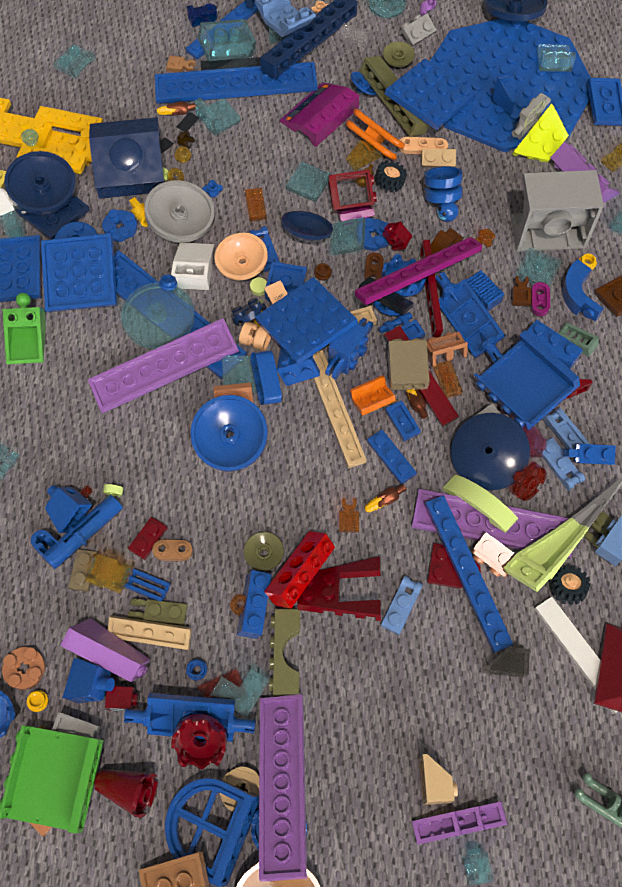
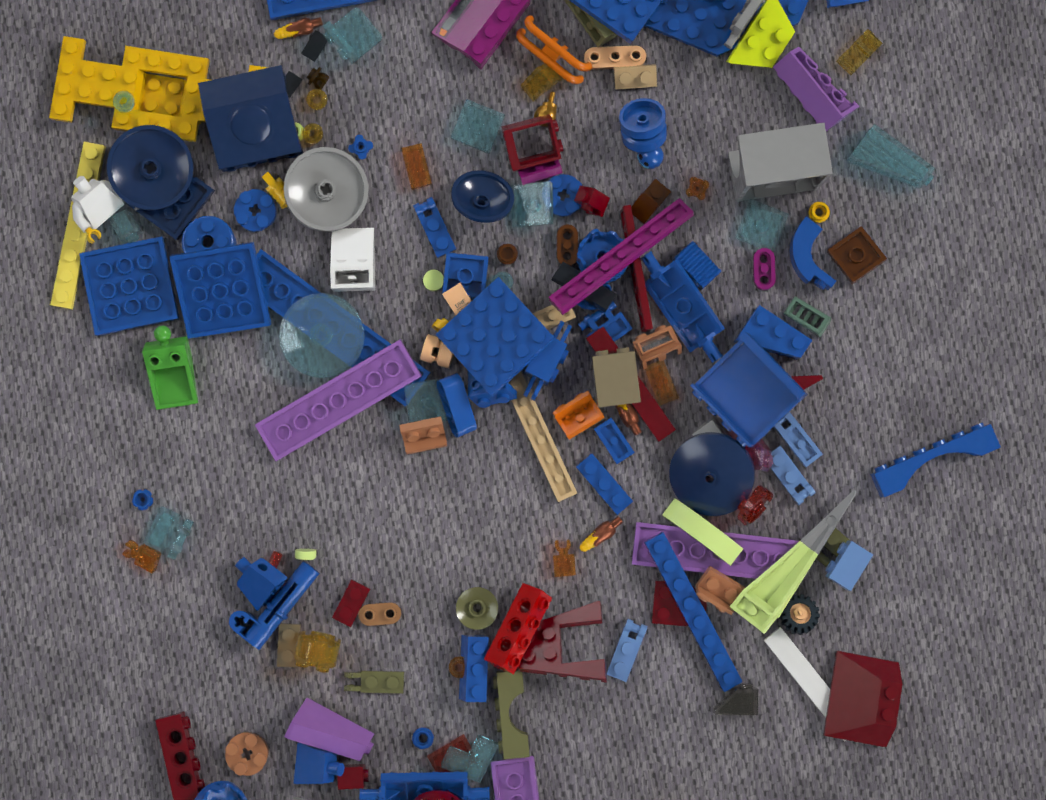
camera: 10 degrees left, 20 degrees up
(37, 701) = (267, 785): yellow plate -> none
(132, 578) = (363, 665): blue tile -> none
(150, 632) = (370, 705): tan plate -> none
(168, 282) = (328, 298): blue plate -> none
(224, 416) = (418, 496): blue dish -> none
(238, 249) = (398, 237): light nougat dish -> none
(248, 311) = (417, 321): dark blue plate -> none
(390, 176) = (577, 111): black wheel -> none
(521, 293) = (742, 264): reddish brown plate -> none
(592, 454) = (822, 464): blue hinge -> none

